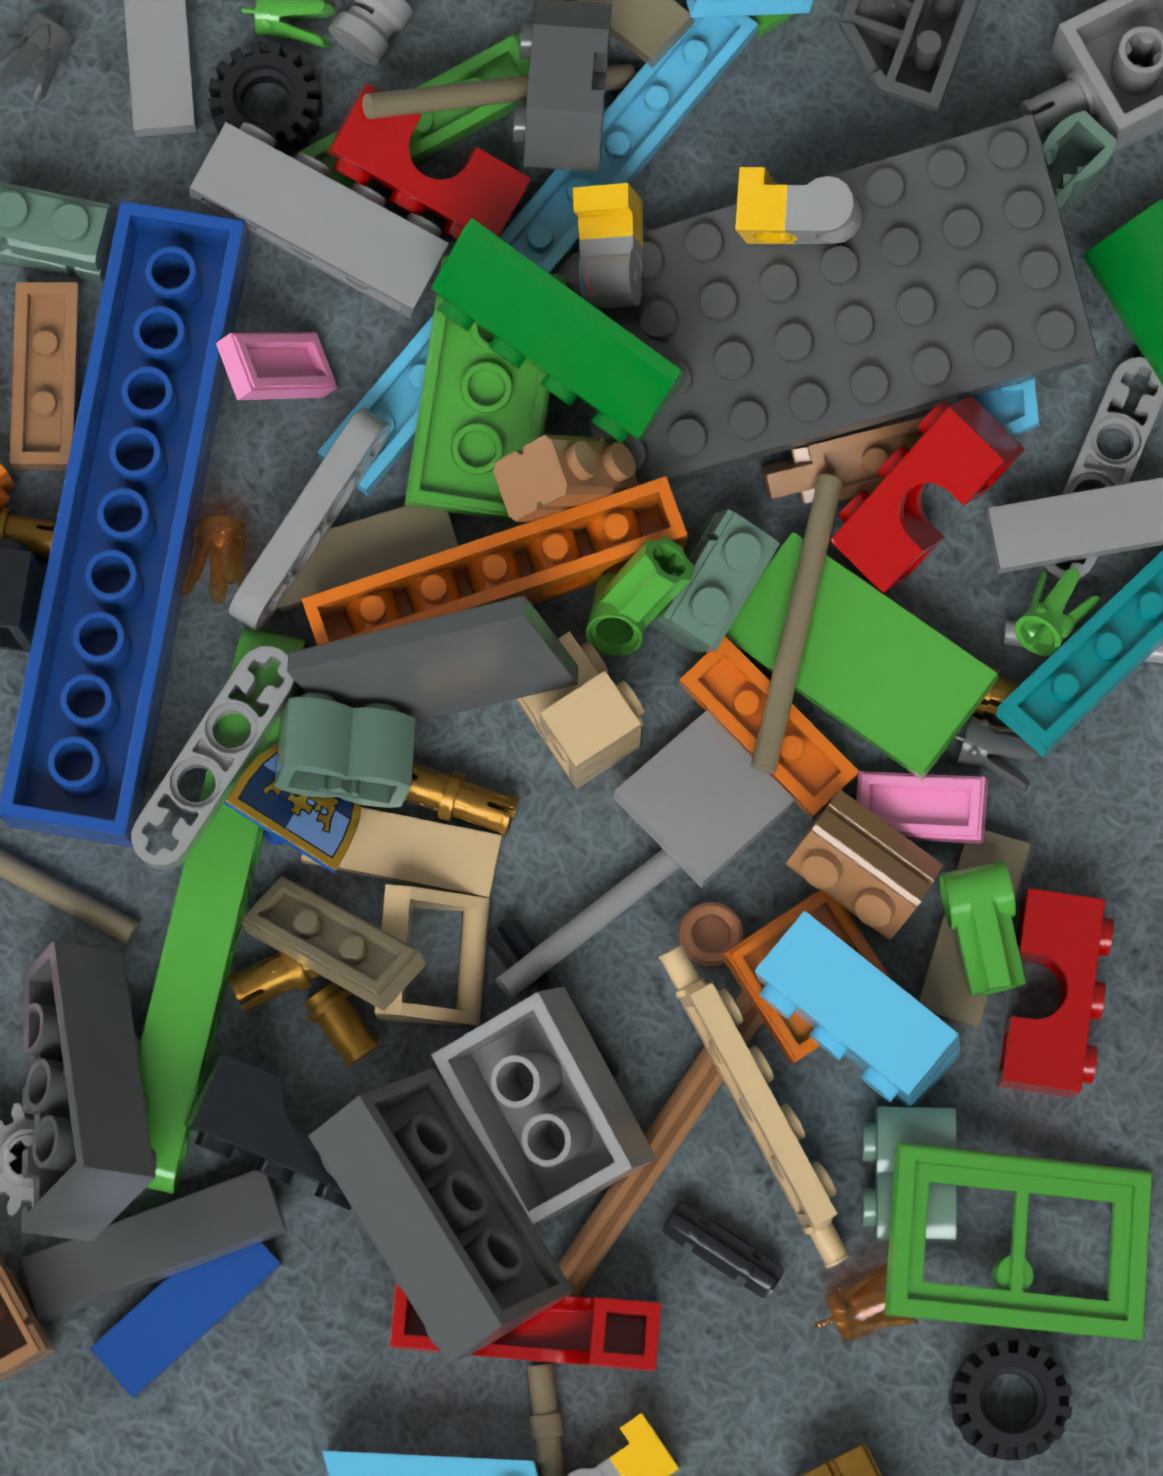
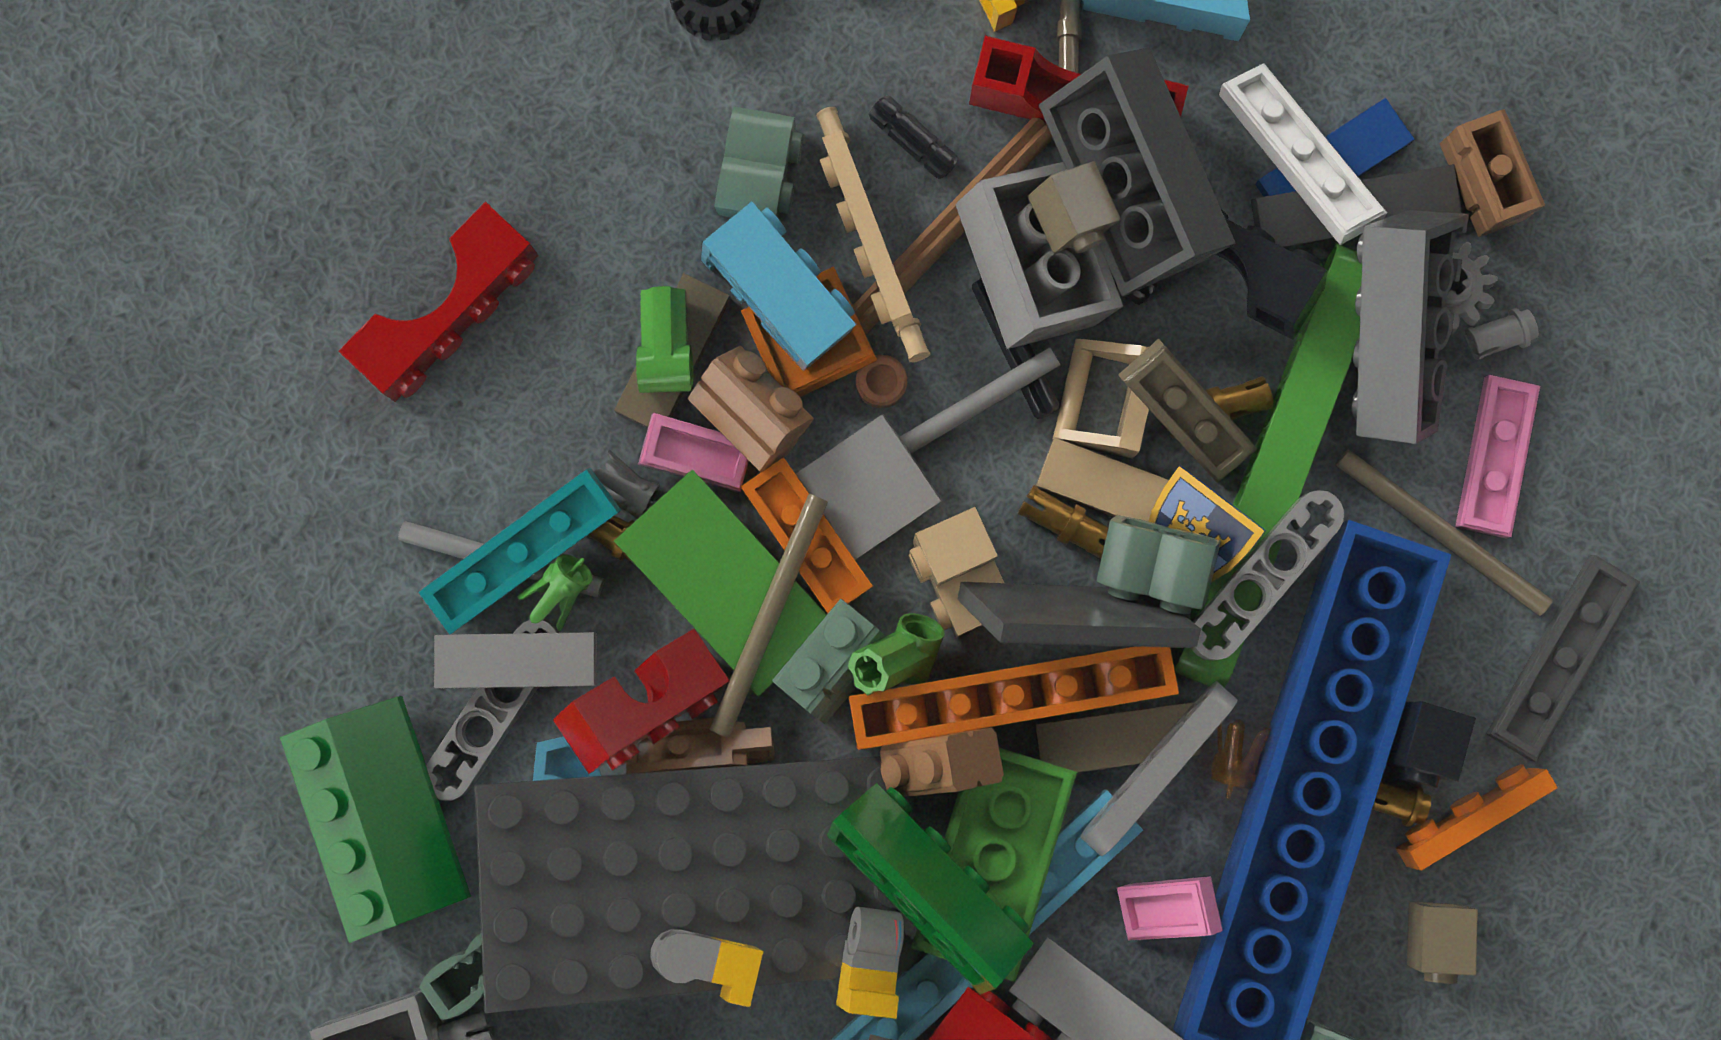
camera: 170 degrees left, 5 degrees up
(45, 374) = (1363, 941): medium nougat plate -> none
(233, 1297) = (1302, 153): none -> white tile
(341, 1024) = (1185, 349): pearl gold pin -> none
(510, 1150) = (1074, 208): none -> dark tan brick
(862, 1307) = (822, 67): clear orange piece -> none
(1012, 1274) = (696, 49): bright green door -> none
(1066, 938) = (629, 243): red arch -> none

